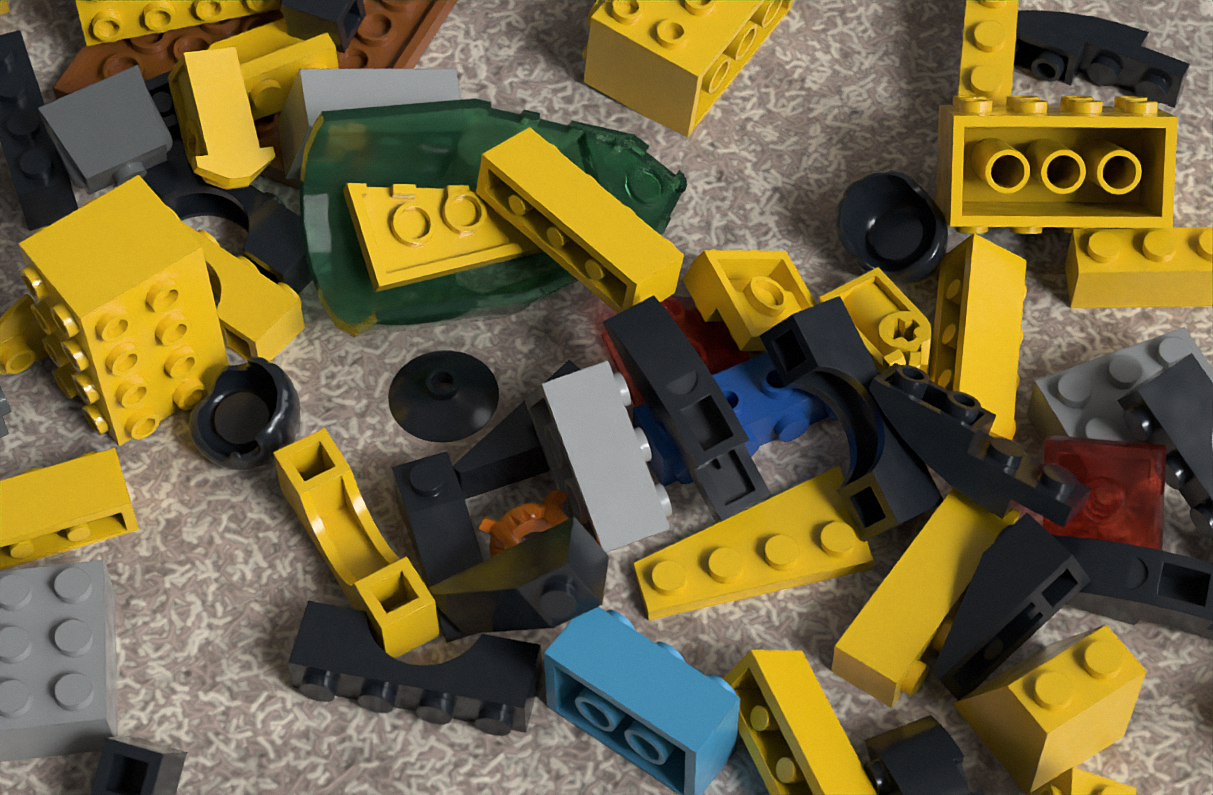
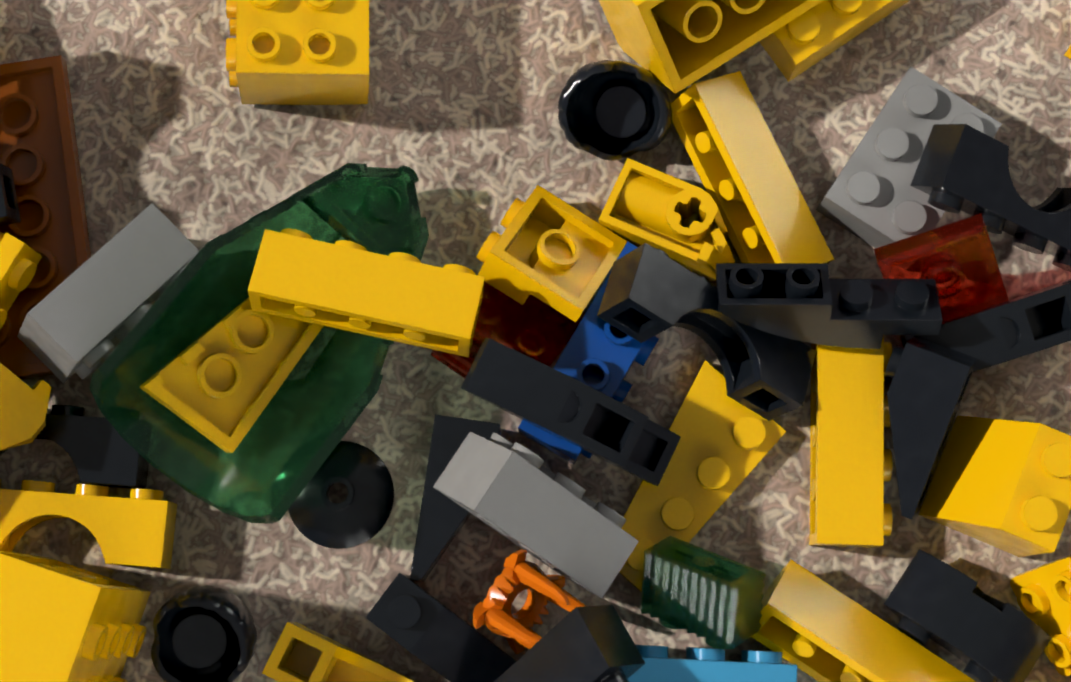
camera: 35 degrees left, 25 degrees up
(698, 616) = (701, 593): none -> clear green brick

